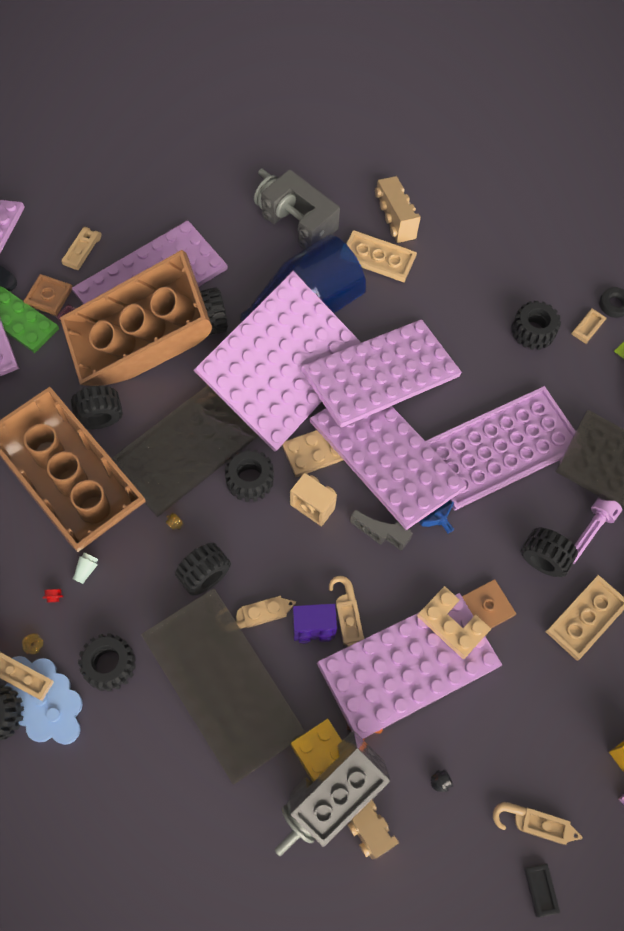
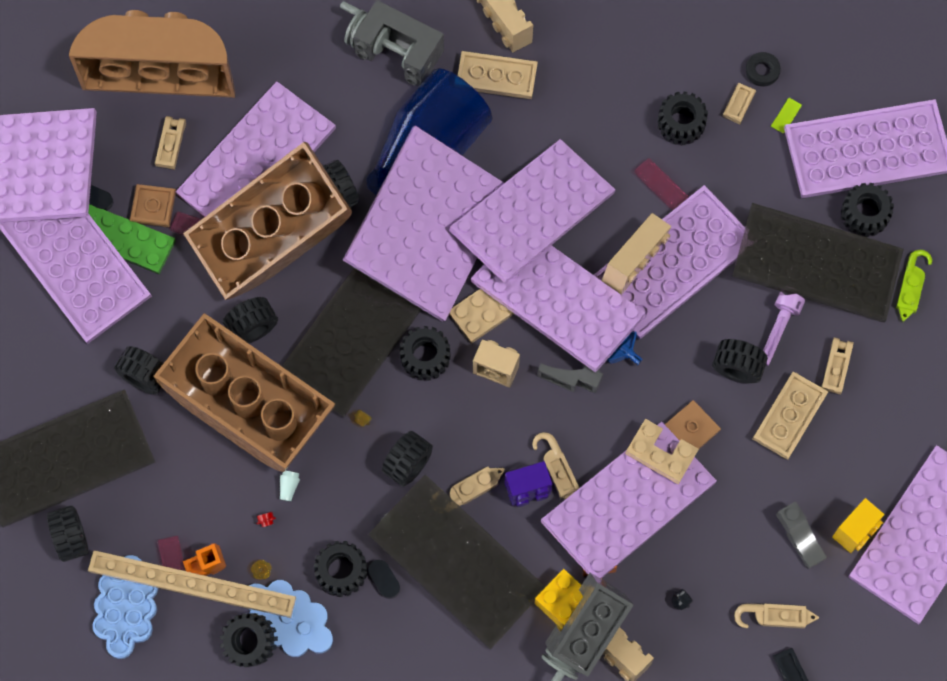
camera: 10 degrees left, 5 degrees up
(82, 170) = (152, 56): none -> medium nougat brick
(148, 683) = (384, 579): none -> black tile
(469, 429) = (636, 253): none -> tan wedge
(504, 377) = (661, 184): none -> clear pink tile
(578, 742) = (801, 535): none -> dark grey slope

